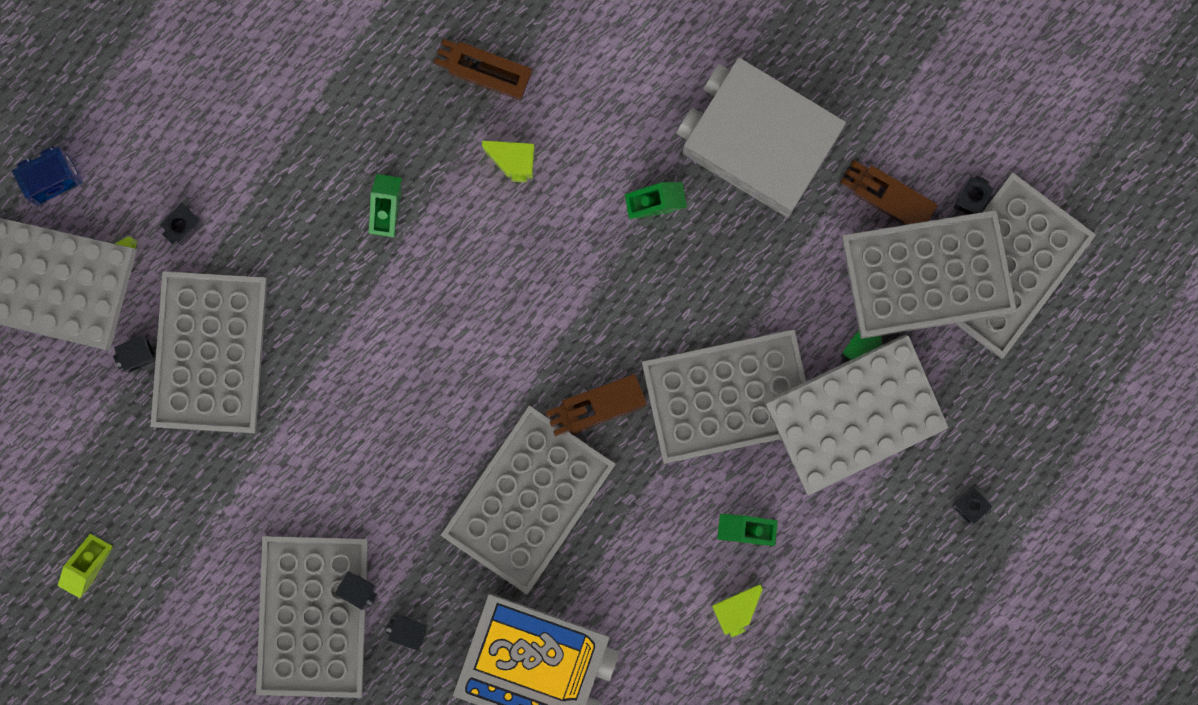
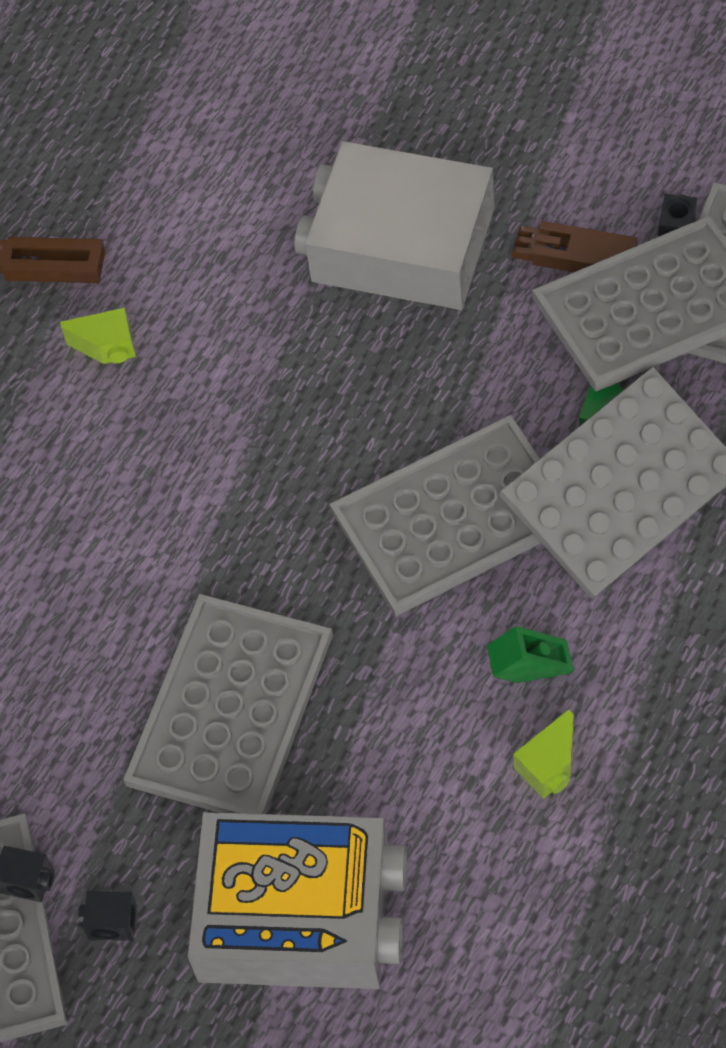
camera: 10 degrees left, 25 degrees down
(607, 402) = (301, 558): reddish brown hinge -> none
(656, 200) = (293, 329): green slope -> none

